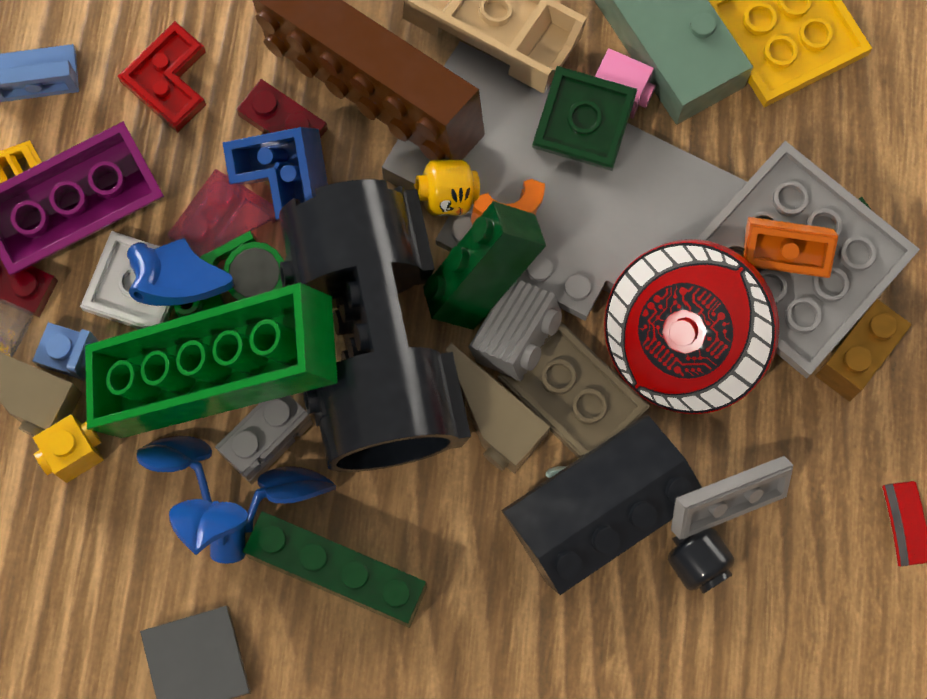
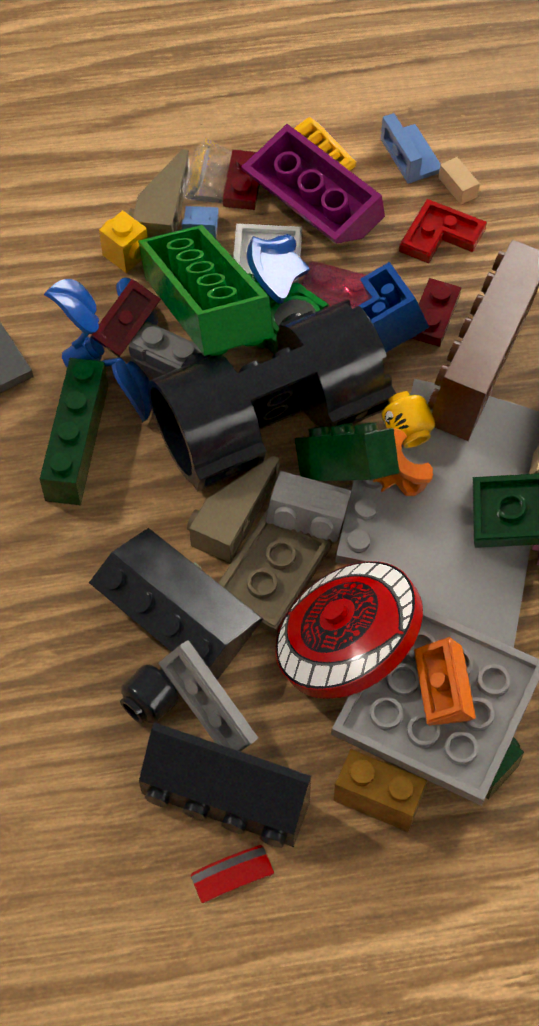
camera: 75 degrees right, 15 degrees down
(101, 32) = (459, 180): none -> tan piece
(208, 466) = (125, 317): none -> dark red plate
(831, 505) = (224, 786): none -> black slope

